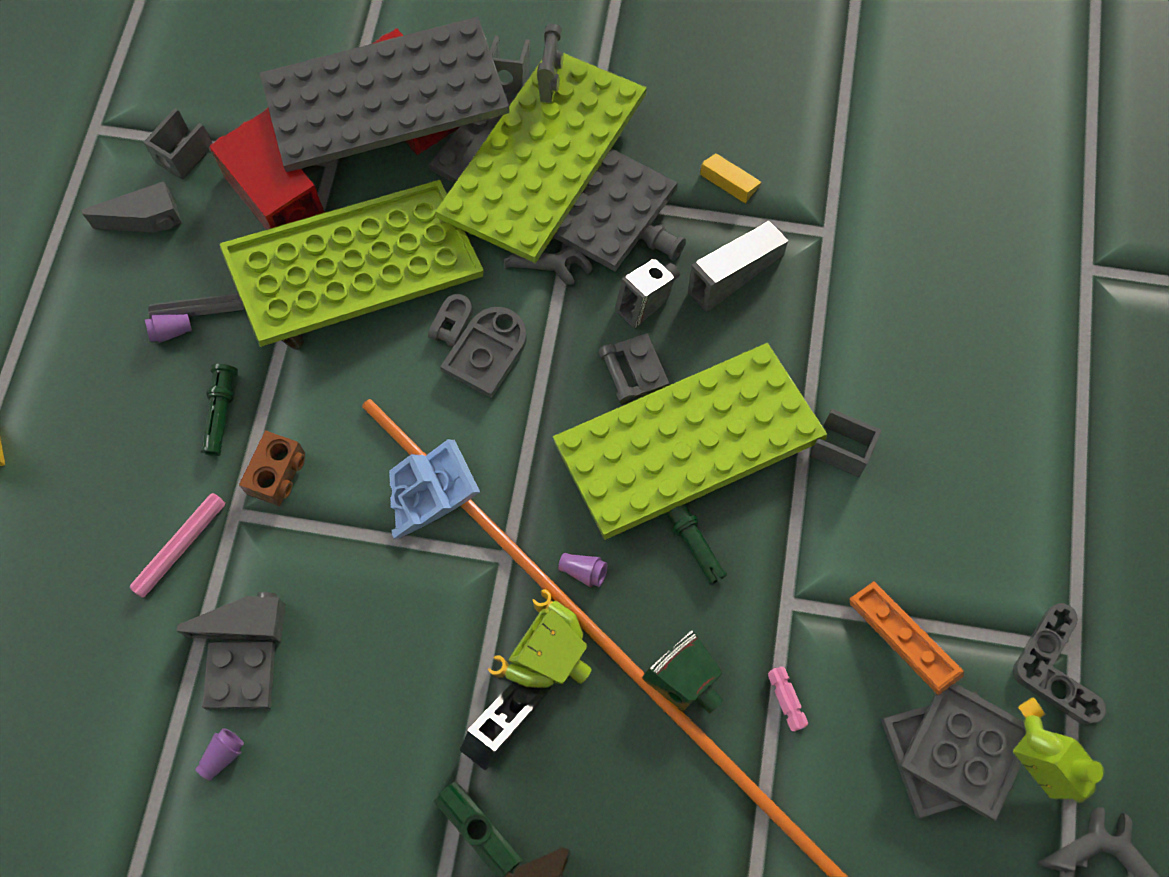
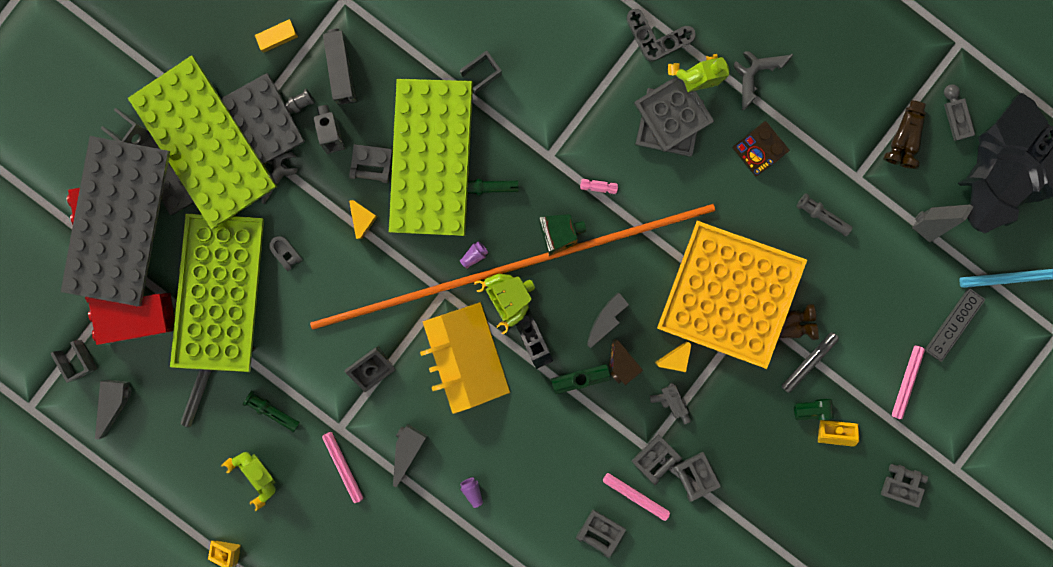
camera: 60 degrees left, 20 degrees up
(113, 430) = (256, 475): none -> lime torso
(166, 327) = (201, 419): medium lavender cone -> none
(239, 675) = (434, 464): dark grey plate -> none
(265, 466) = (321, 401): dark orange brick -> none
(342, 507) = (370, 369): none -> dark grey slope
(423, 633) = (465, 358): none -> yellow piece
(429, 487) = (383, 315): light blue slope -> none
(486, 352) = (316, 243): dark grey plate -> none
(550, 392) = (361, 218): none -> yellow slope
(552, 61) = (144, 104): dark grey plate -> none
(592, 819) = (606, 319): none -> dark grey slope
(906, 638) = (602, 107): orange tile -> none

